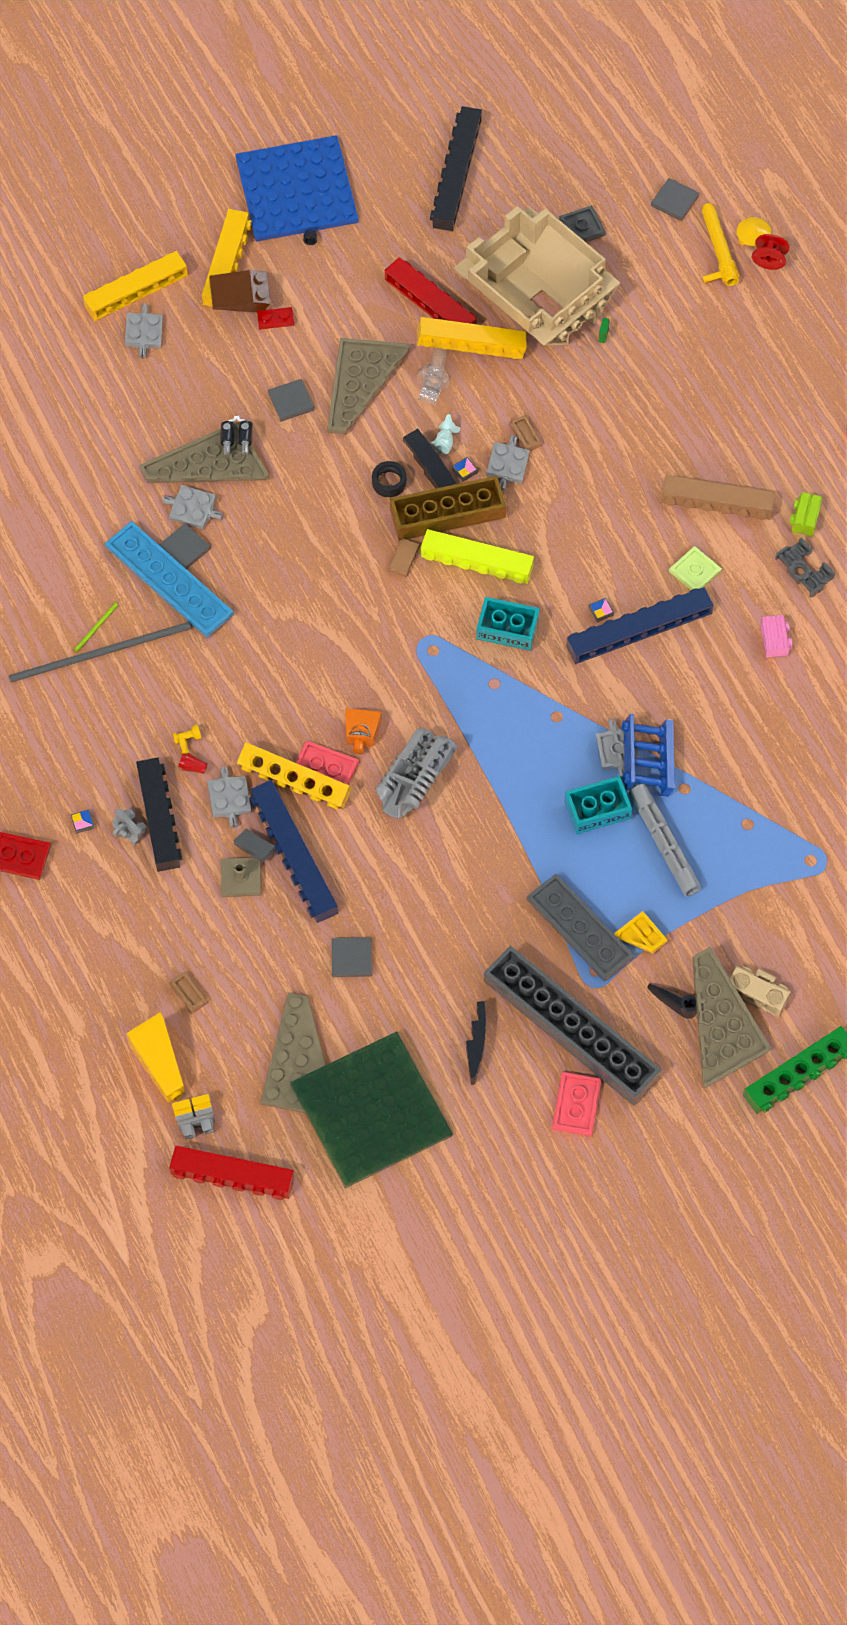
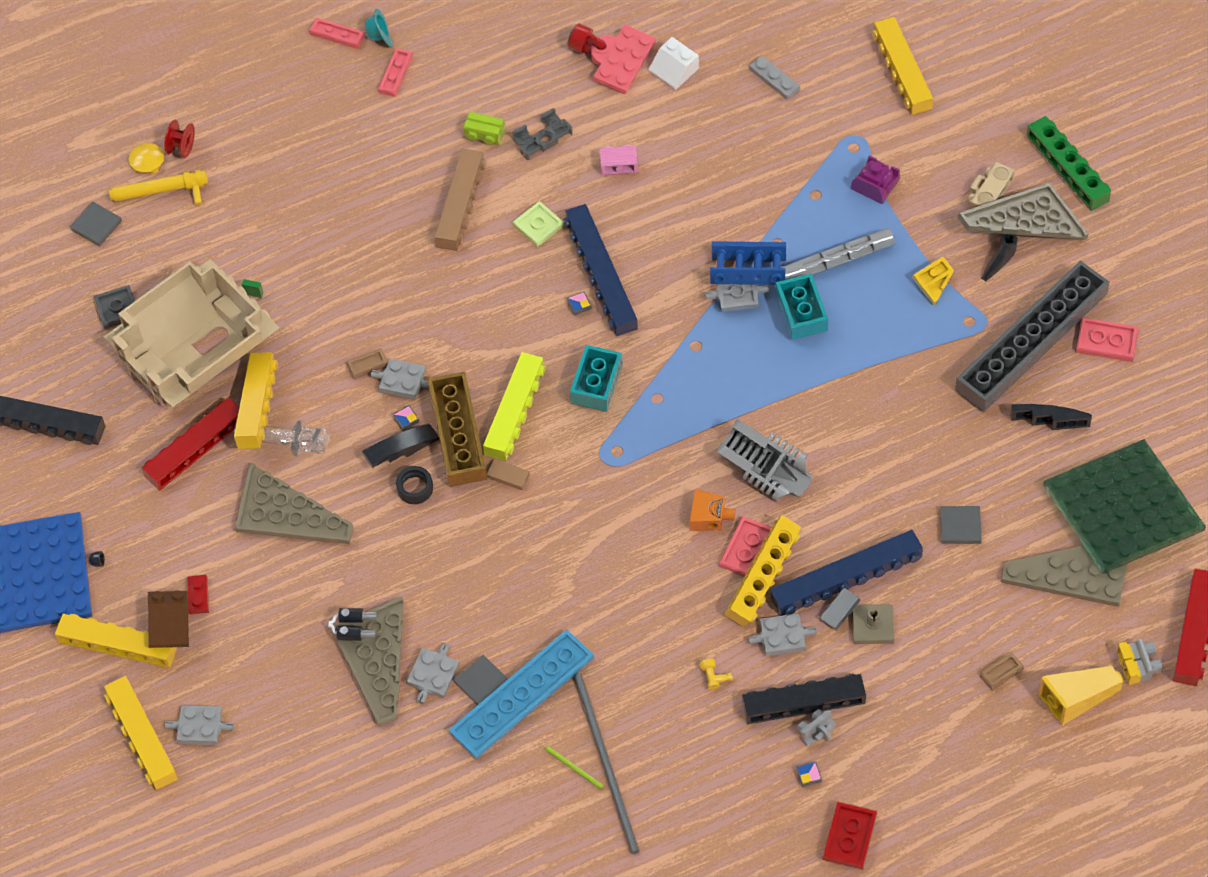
camera: 85 degrees left, 5 degrees down
(192, 764) = (744, 670): red cone -> none
(290, 400) = (305, 579): dark grey tile -> none
(444, 439) = (372, 432): light aqua animal -> none
(580, 927) = (927, 329): dark grey plate -> none
(765, 879) = (876, 180): none -> magenta brick

